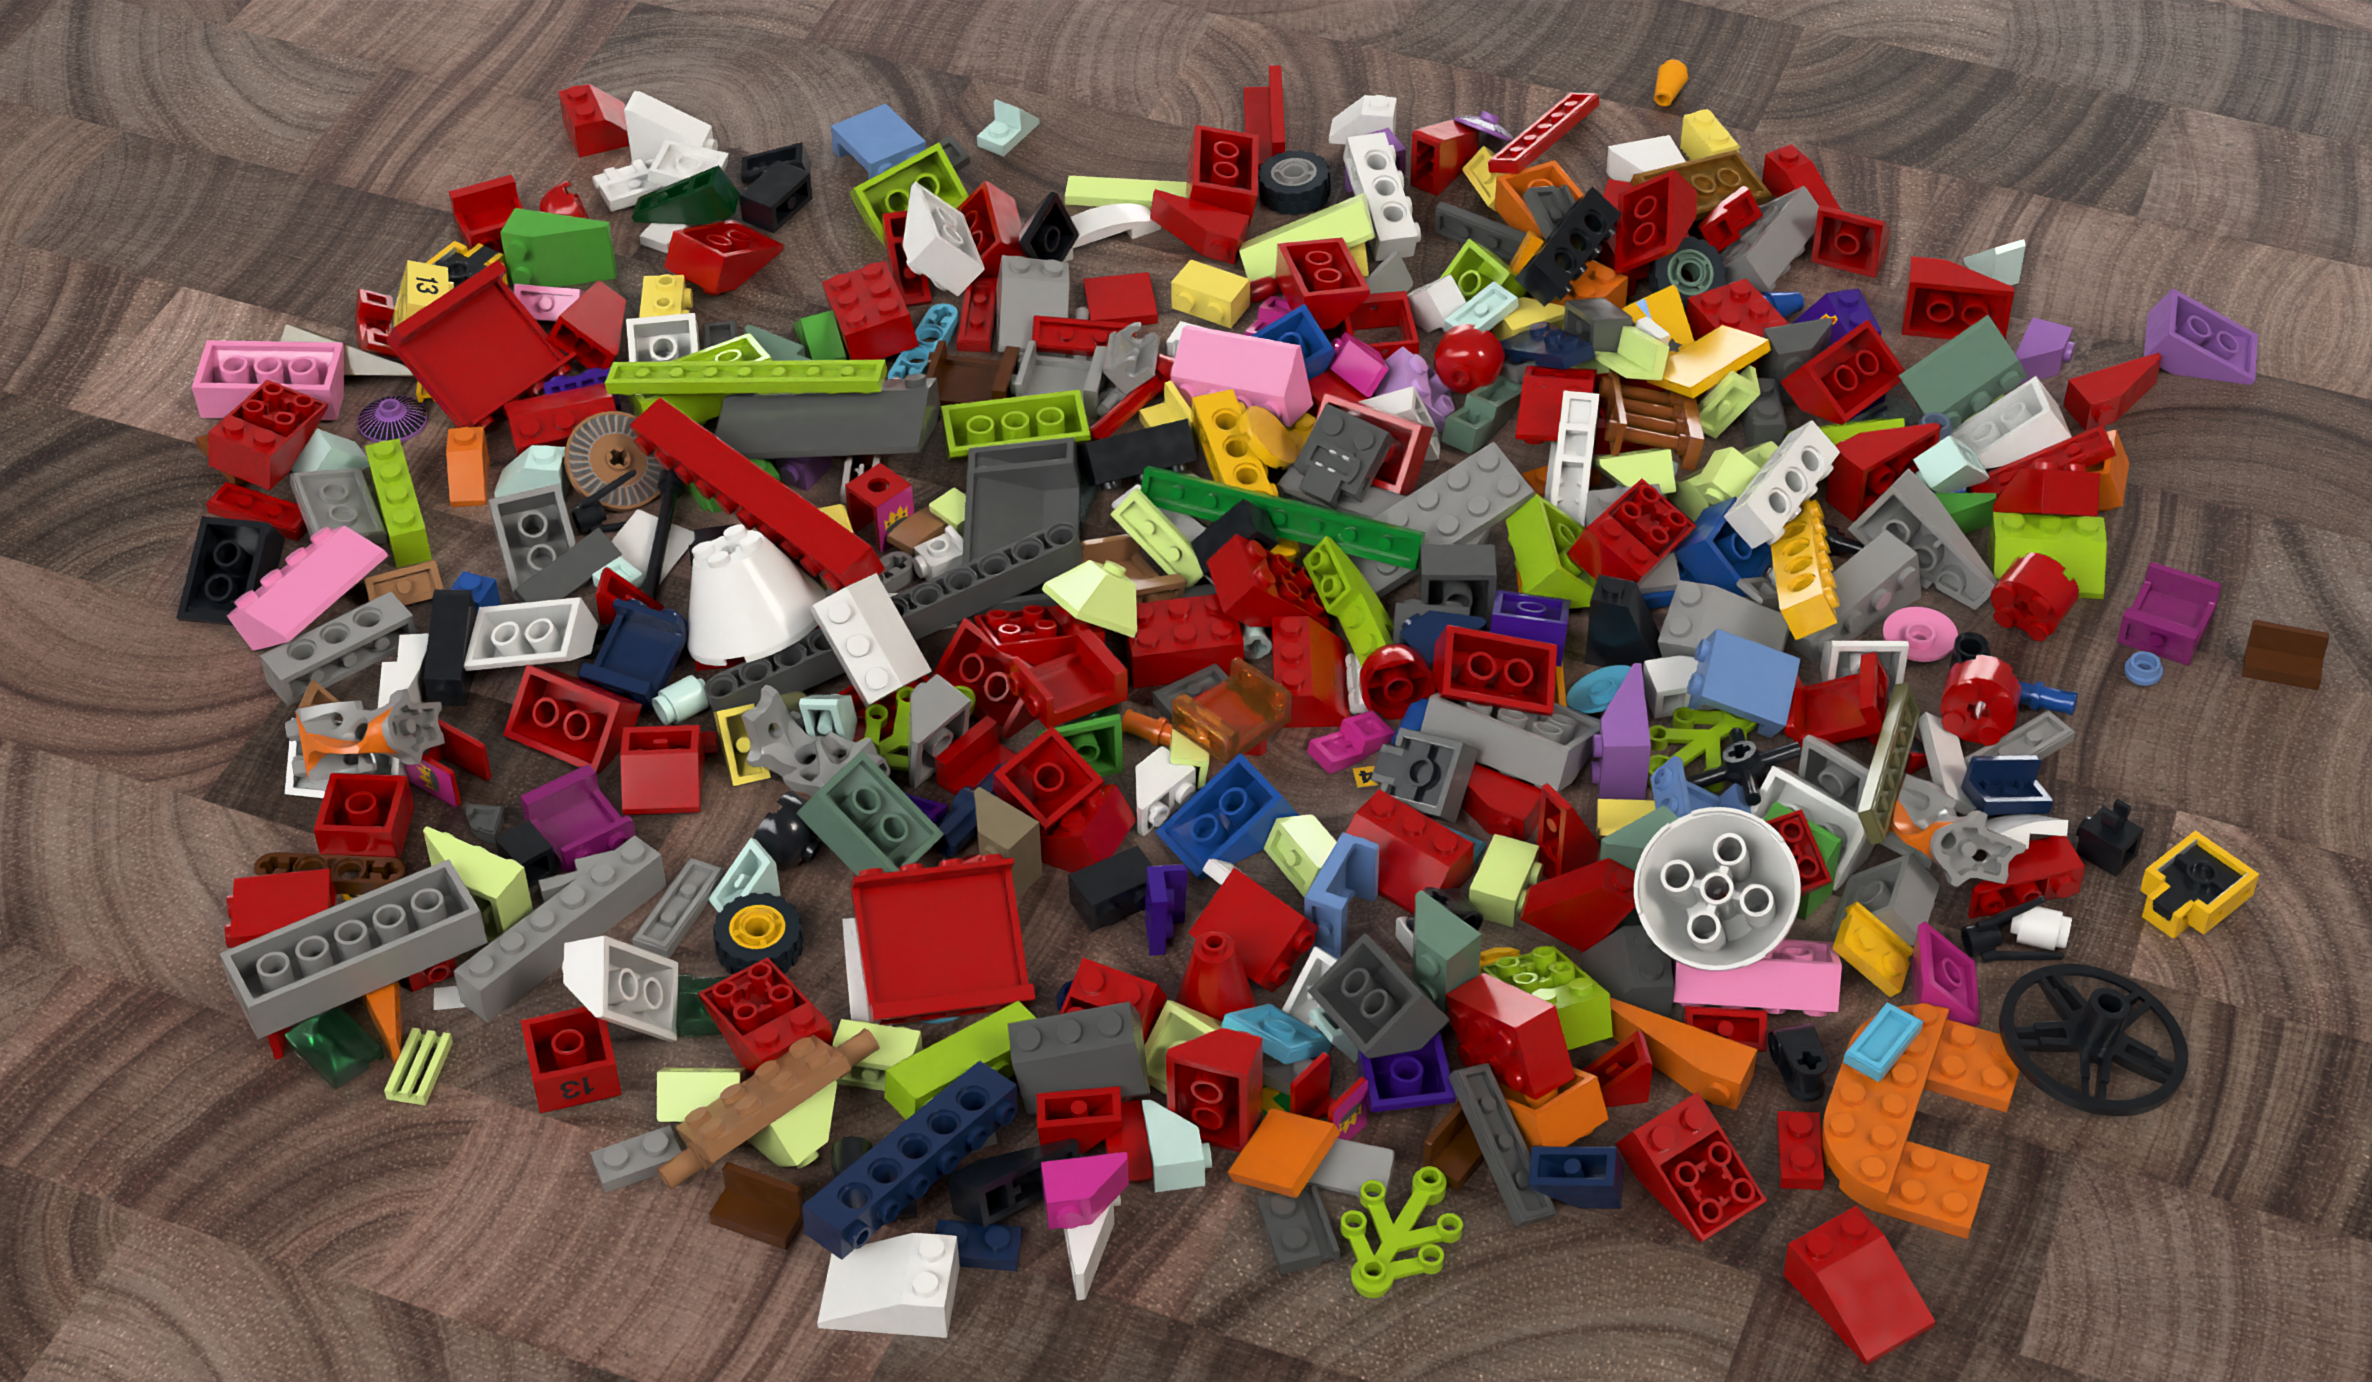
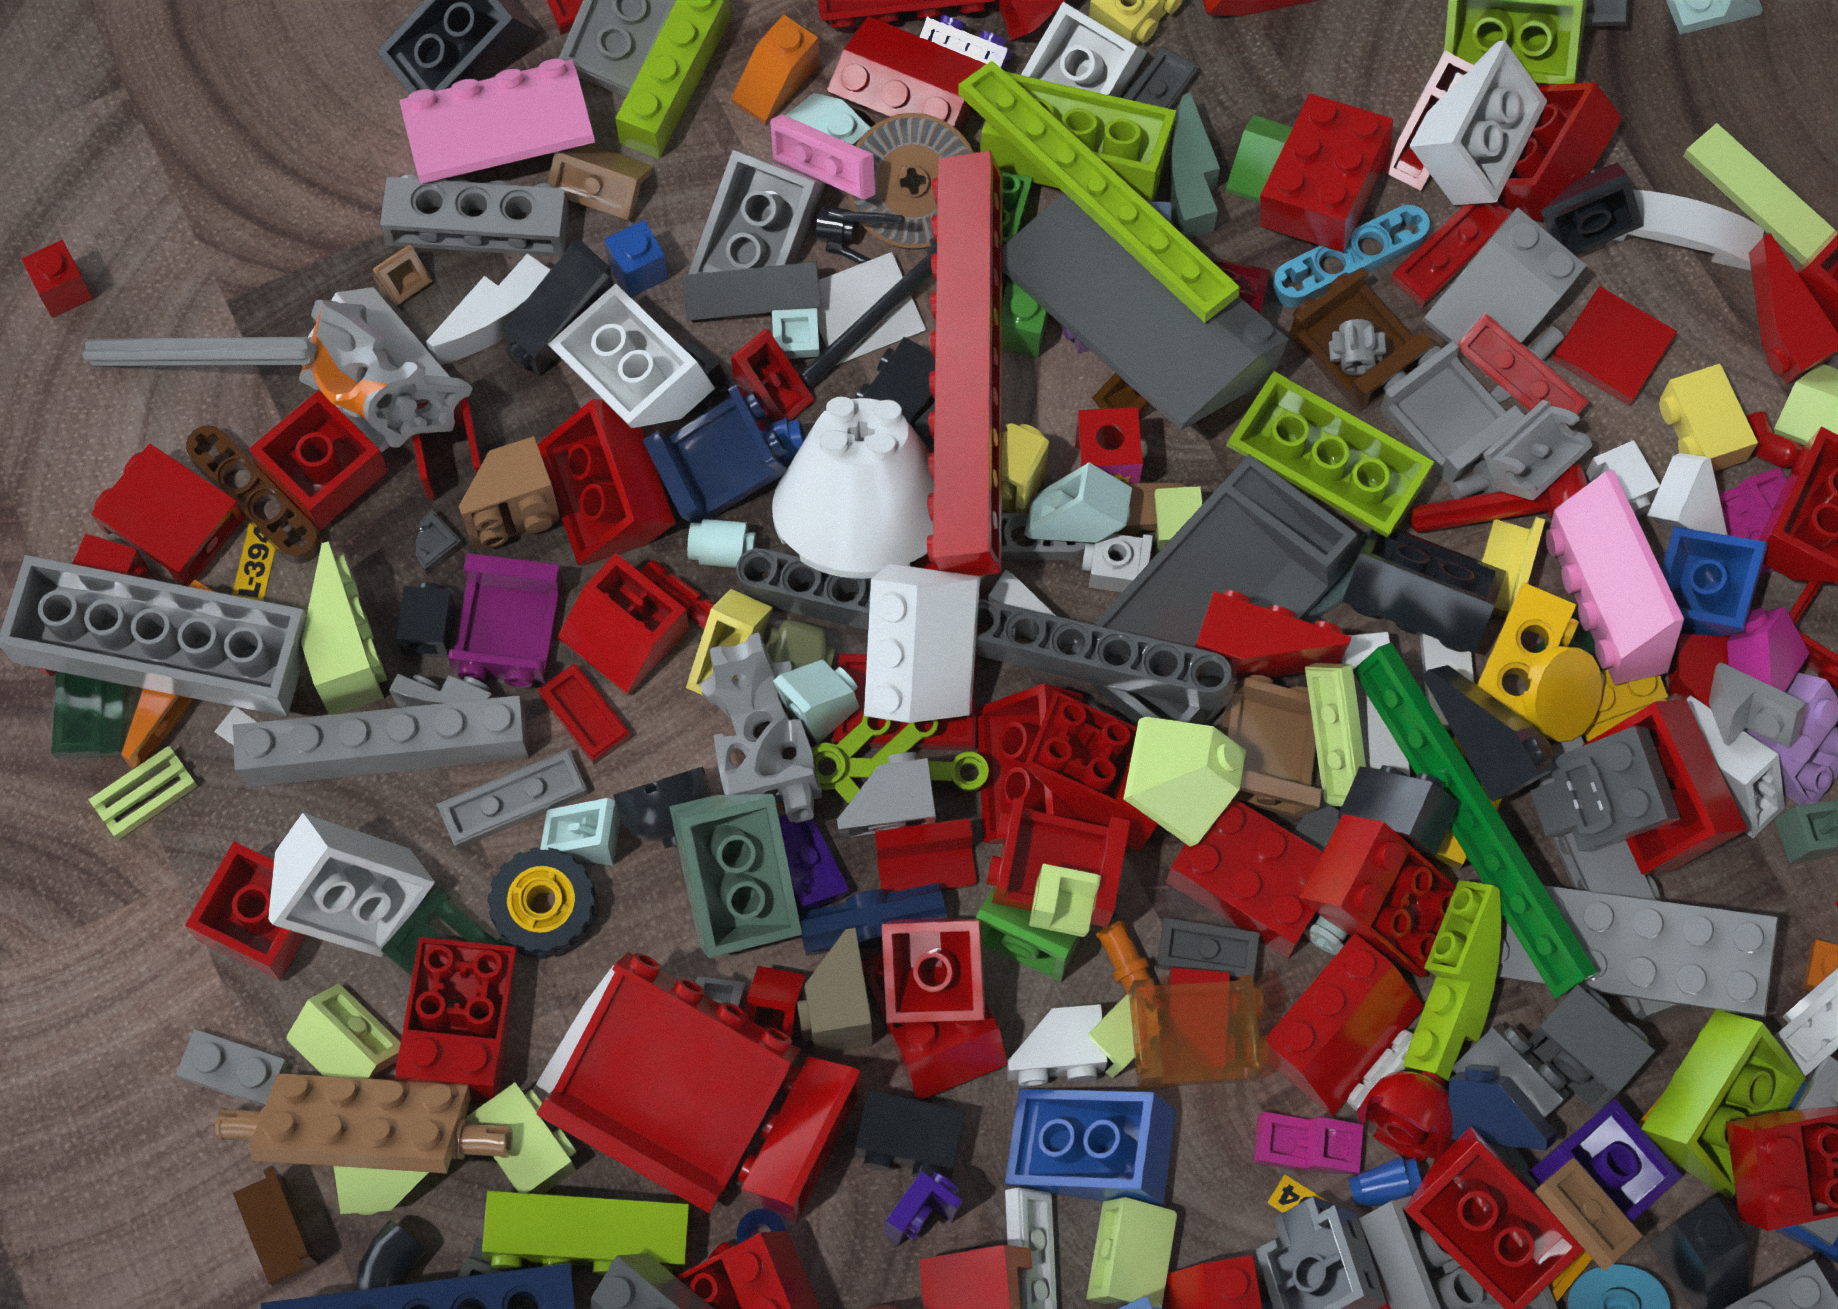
camera: 40 degrees right, 25 degrees up
(69, 848) = (57, 278): none -> red brick
(222, 806) = (200, 351): none -> light grey axle
(522, 747) = (509, 496): none -> medium nougat slope
(568, 468) = (823, 156): none -> bright pink tile
(683, 838) = (584, 713): none -> red tile
(897, 530) = (1080, 507): none -> light aqua slope
(975, 377) = (1357, 346): none -> light grey gear
(1050, 923) = (800, 1136): none -> red slope
(1080, 502) = (1266, 639): none -> red slope
(1088, 685) = (1064, 900): none -> yellowish green panel
(1237, 316) = (1689, 496): none -> white slope
(1254, 468) = (1495, 739): none -> black slope
(1376, 375) = (1749, 703): none -> light grey slope
(1545, 628) = (1588, 1214): none -> medium nougat panel

